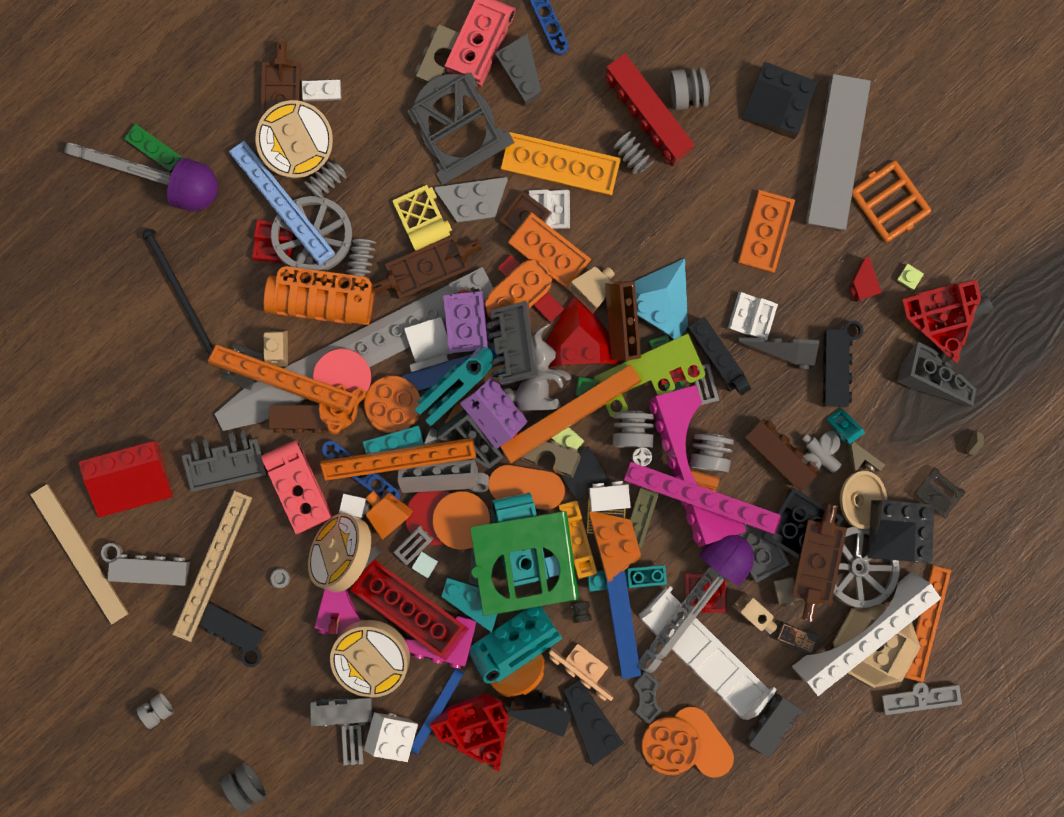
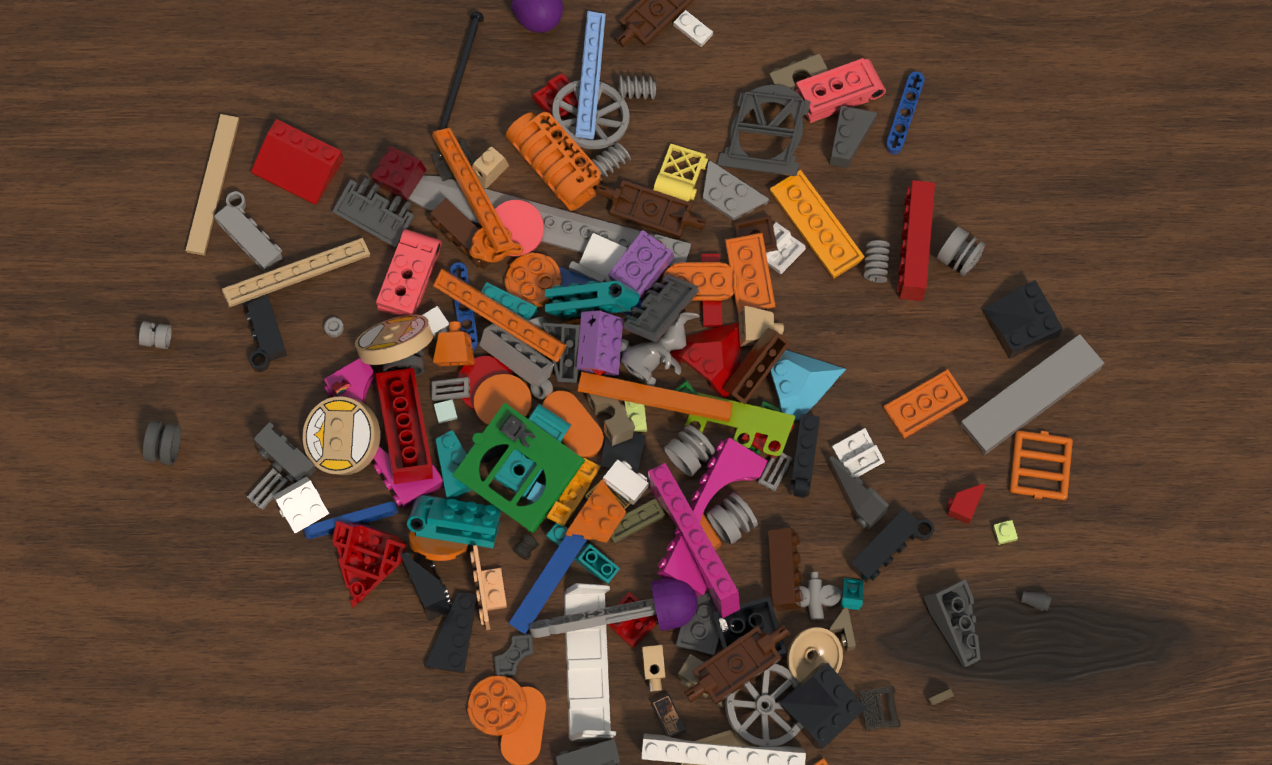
camera: 40 degrees right, 15 degrees down
(213, 416) = (398, 173): none -> dark red brick
(293, 139) = (640, 41): piece -> none
(498, 540) = (515, 429): none -> black plate
(645, 453) = (680, 475): white wheel -> none
(945, 314) = (1004, 578): red wedge -> none

